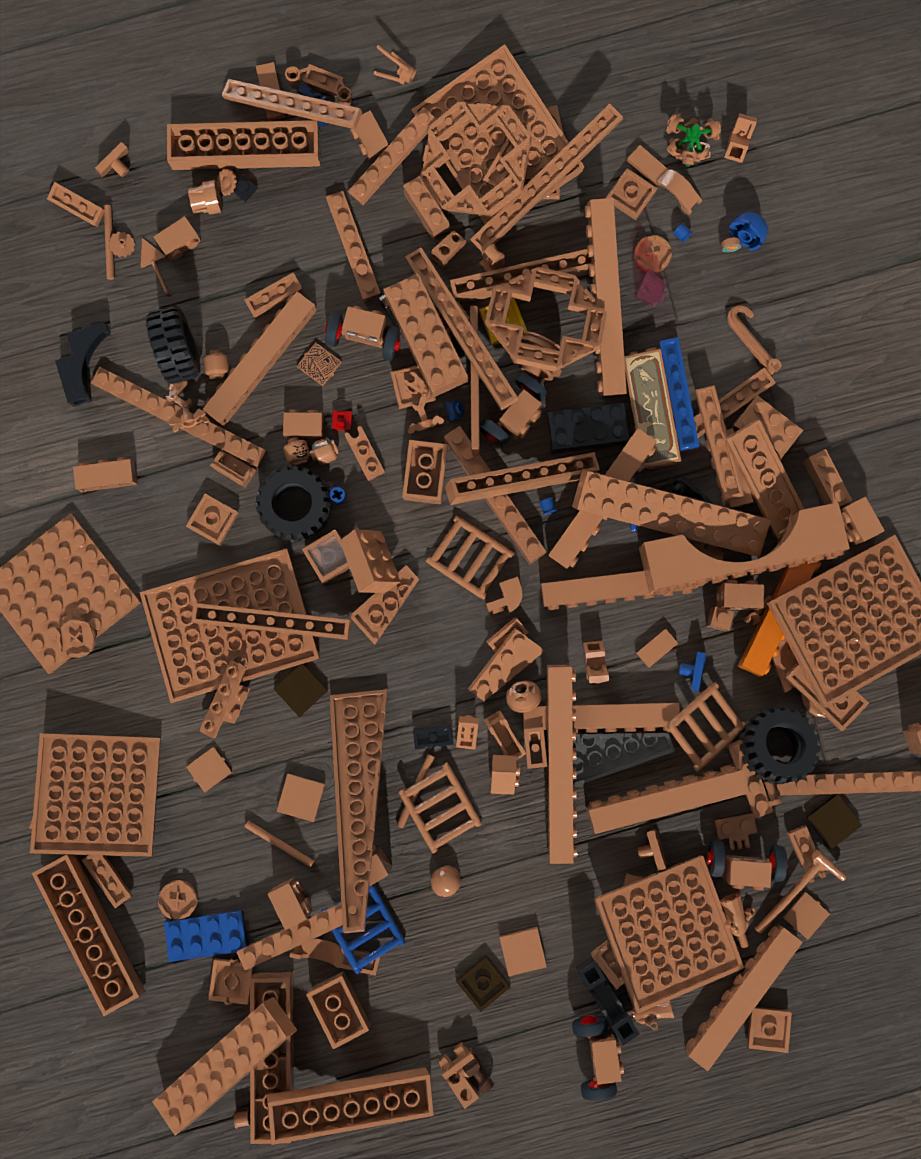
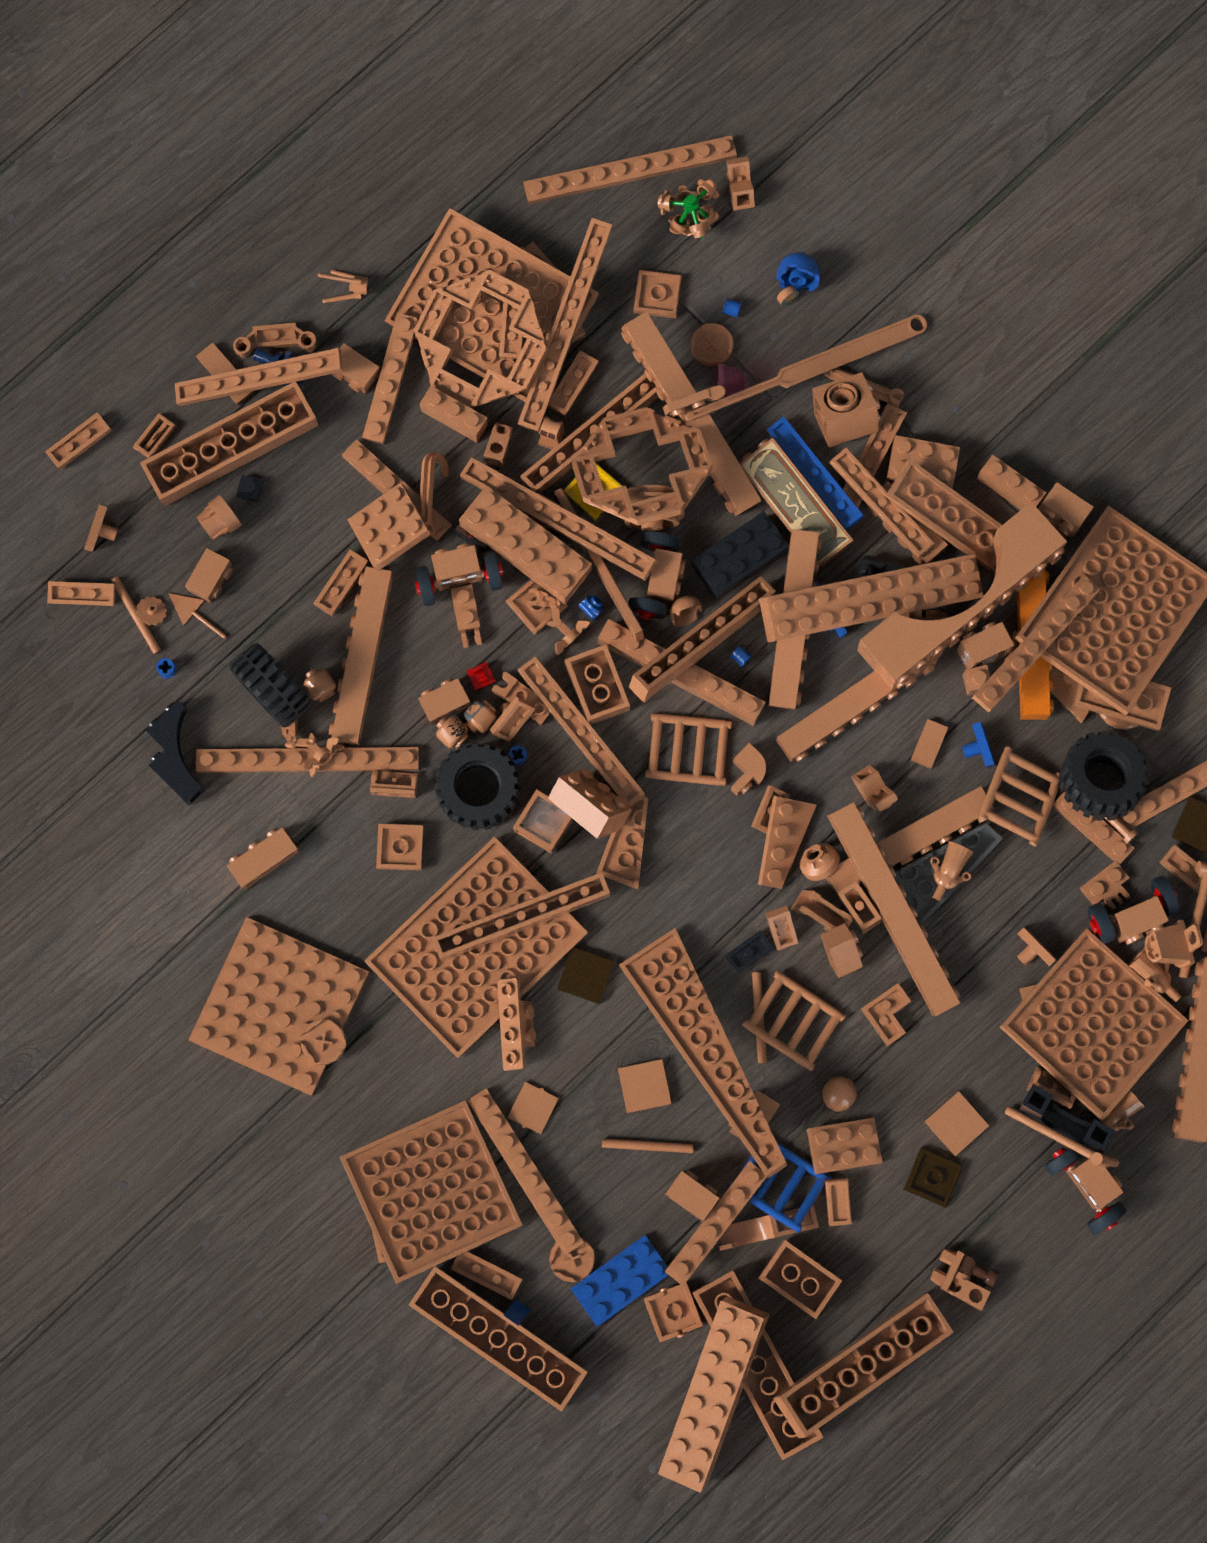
camera: 30 degrees left, 5 degrees down
(109, 288) = (161, 664): none -> blue axle
(112, 920) = (517, 1312): none -> blue sticker
(134, 87) = (78, 441): none -> nougat plate
(177, 816) = (525, 1172): none -> nougat plate
(196, 115) = (144, 451): none -> nougat tile
(226, 182) = (229, 490): nougat piece -> none
(242, 1118) = (759, 1447): nougat axle -> none
(319, 364) = (425, 630): nougat piece -> none
(330, 269) = (389, 526): none -> nougat plate
(347, 465) = (512, 718): none -> nougat tile
(356, 366) = (466, 613): none -> nougat hinge
(373, 257) = (427, 486): none -> nougat piece
(393, 502) = (580, 731): none -> nougat plate
(400, 964) = (838, 1201): none -> nougat tile
(427, 924) = (844, 1146): none -> nougat plate
(510, 835) = (881, 1011): none -> nougat plate
(522, 449) = (684, 610): none -> nougat hair
(529, 230) = (573, 383): none -> nougat plate
(614, 287) = (695, 400): none -> nougat hinge
(614, 1048) = (1096, 1158): none -> nougat bar
(616, 759) = (948, 875): none -> nougat piece
(660, 86) = (630, 169): none -> nougat plate
(667, 799) = (1014, 894): nougat brick -> none
(668, 178) = (683, 260): nougat piece -> none
(729, 310) = (822, 363): none -> nougat piece
(730, 355) = (846, 409): none -> nougat brick
(764, 906) = (1173, 944): none -> nougat container
(781, 616) = (1036, 643): none -> nougat plate

